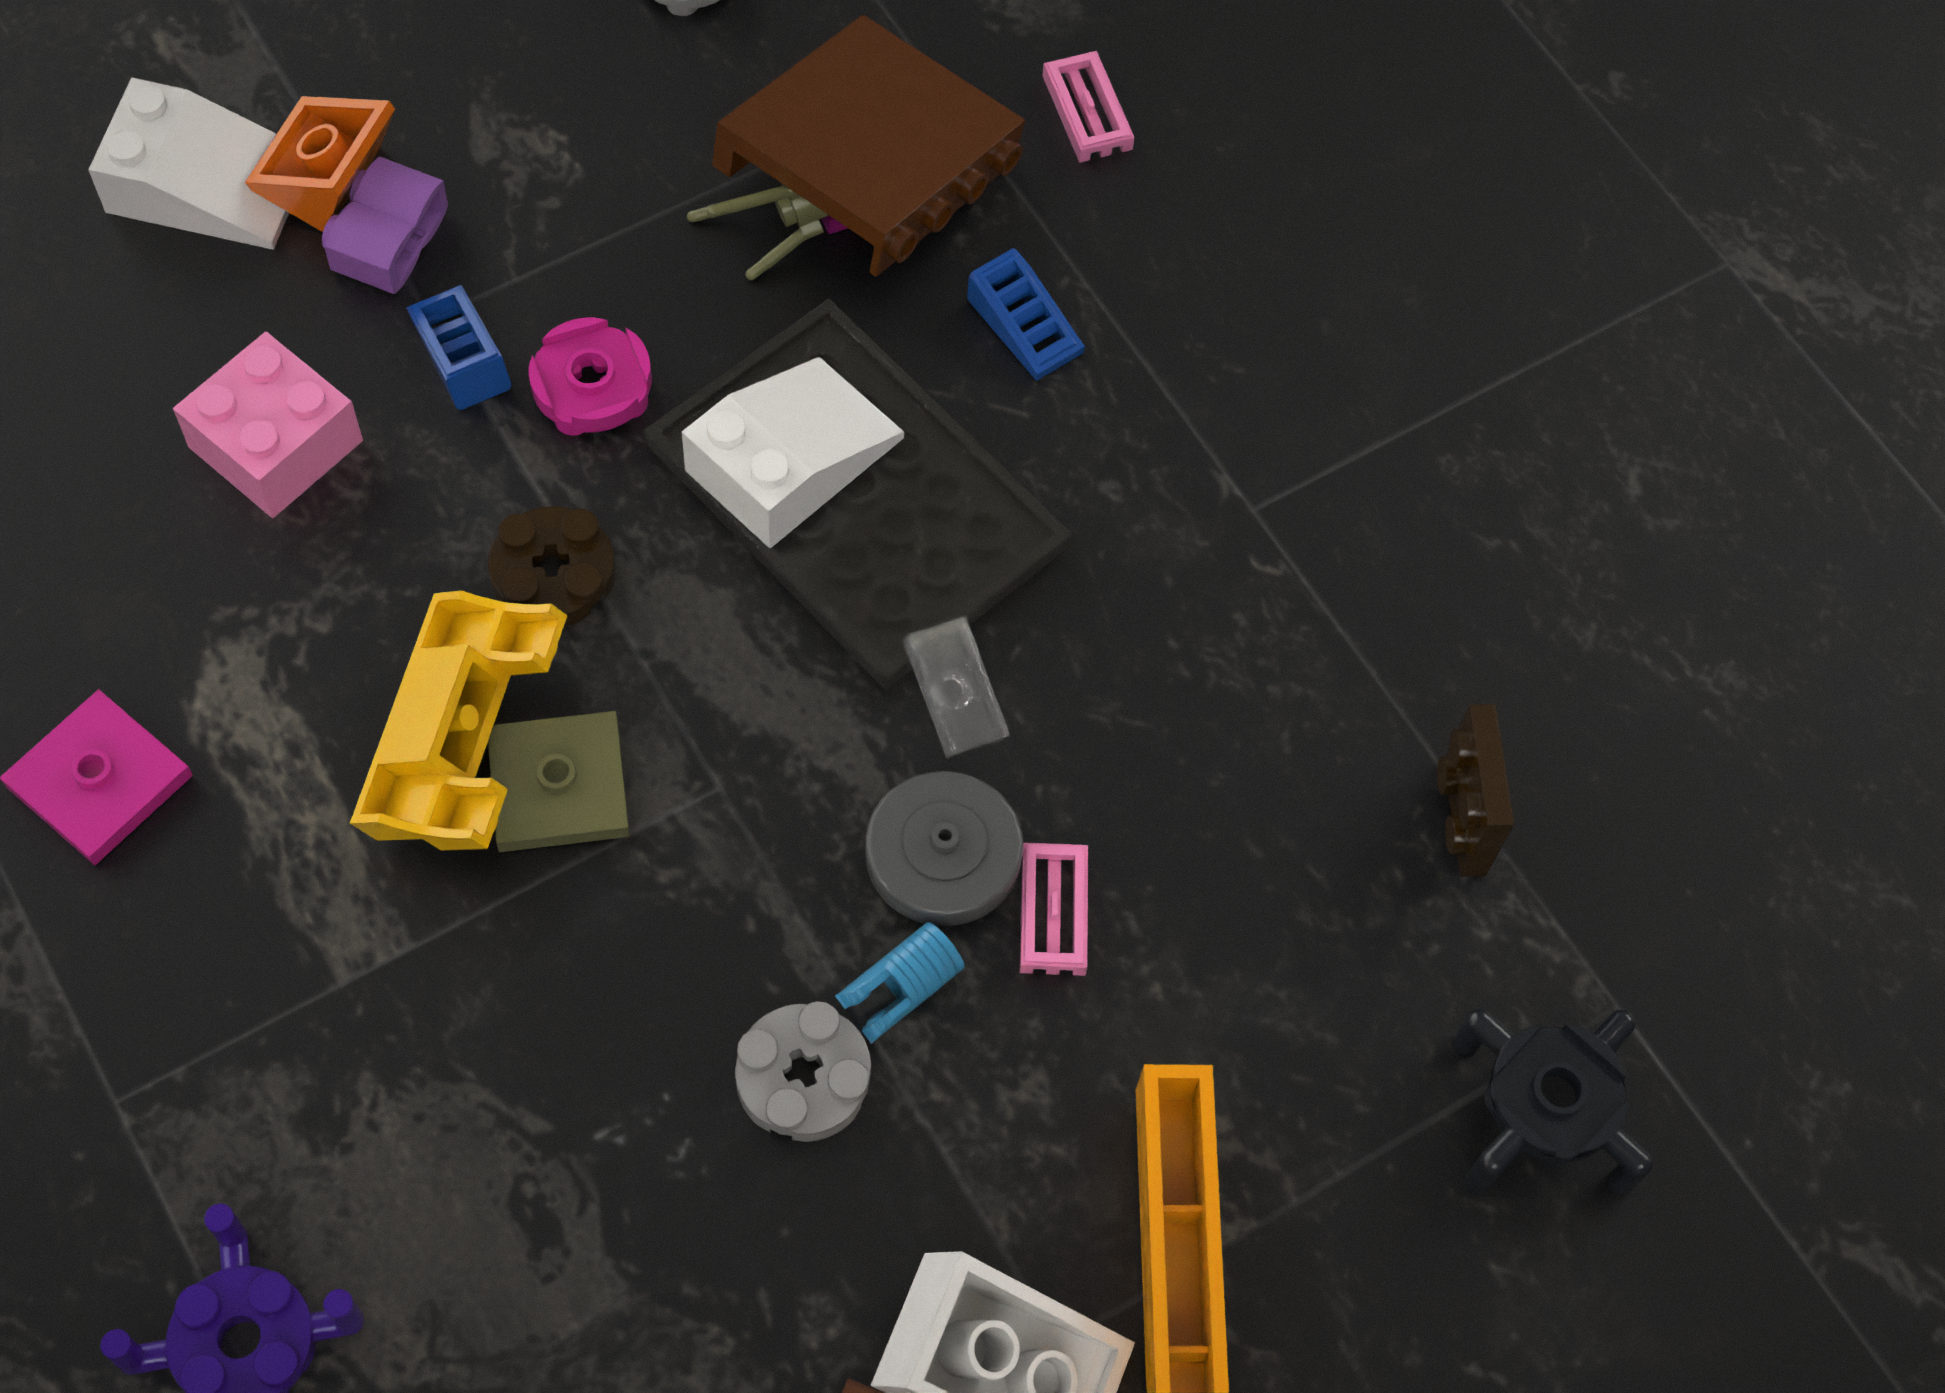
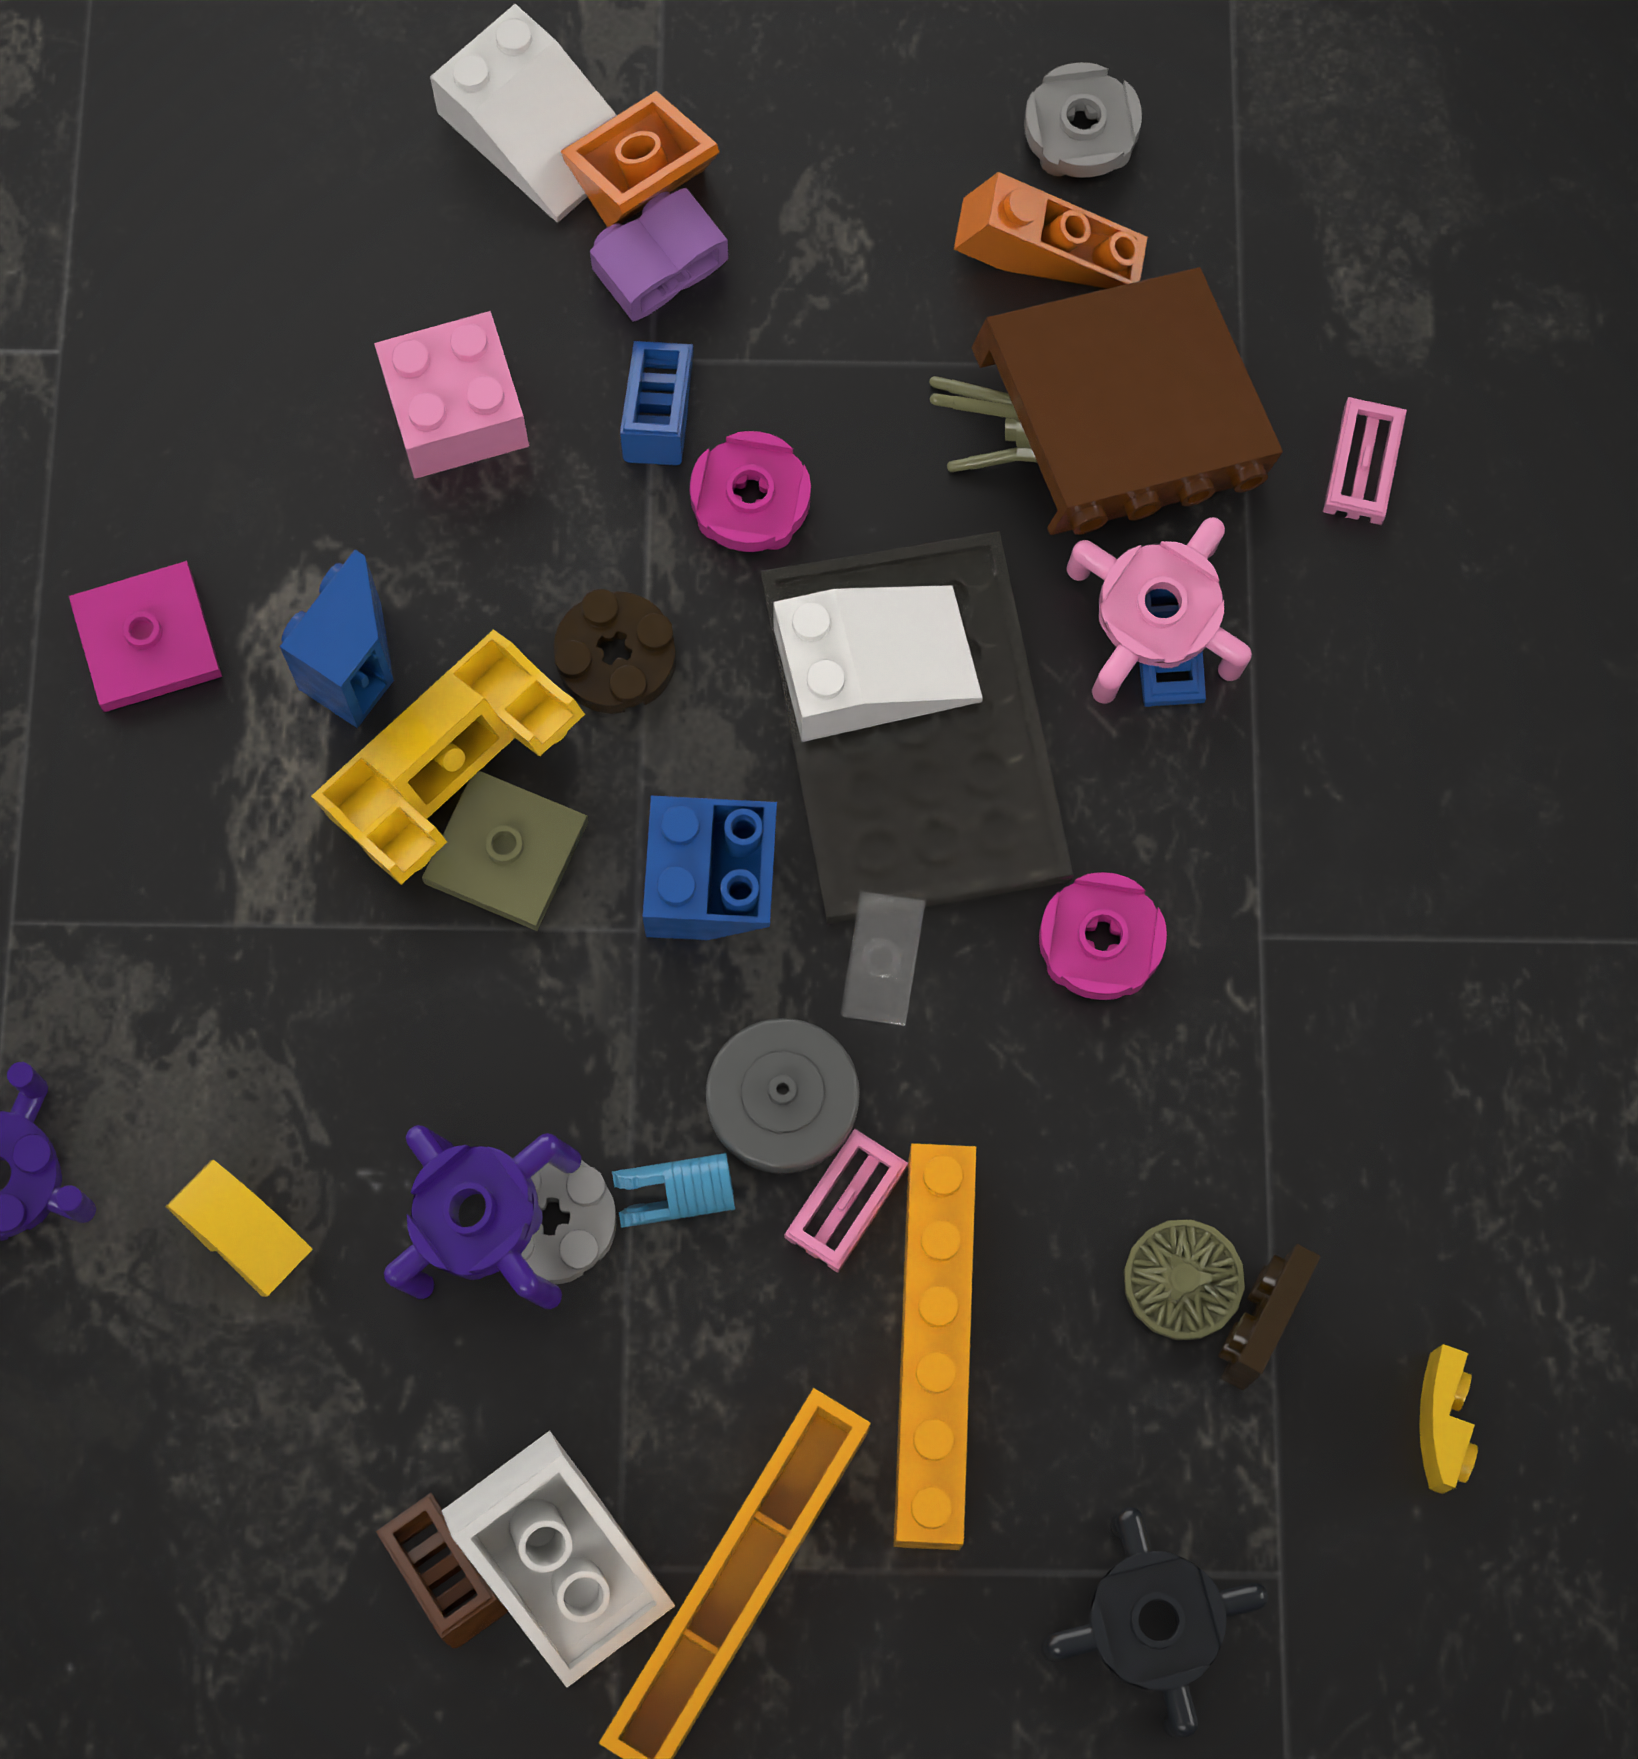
camera: 35 degrees right, 10 degrees up
(299, 676) = (341, 643): none -> blue slope
(517, 1242) = (239, 1227): none -> yellow slope
(710, 58) = (1046, 236): none -> orange slope
(756, 692) = (708, 867): none -> blue slope
(769, 1116) = (503, 1232): none -> dark purple plate
(1002, 311) = (1153, 639): none -> bright pink plate
(1121, 605) = (1131, 915): none -> dark pink plate
(1218, 983) = (935, 1348): none -> light orange brick
(1379, 811) = (1184, 1279): none -> olive wheel
(1670, 812) = (1444, 1438): none -> yellow slope

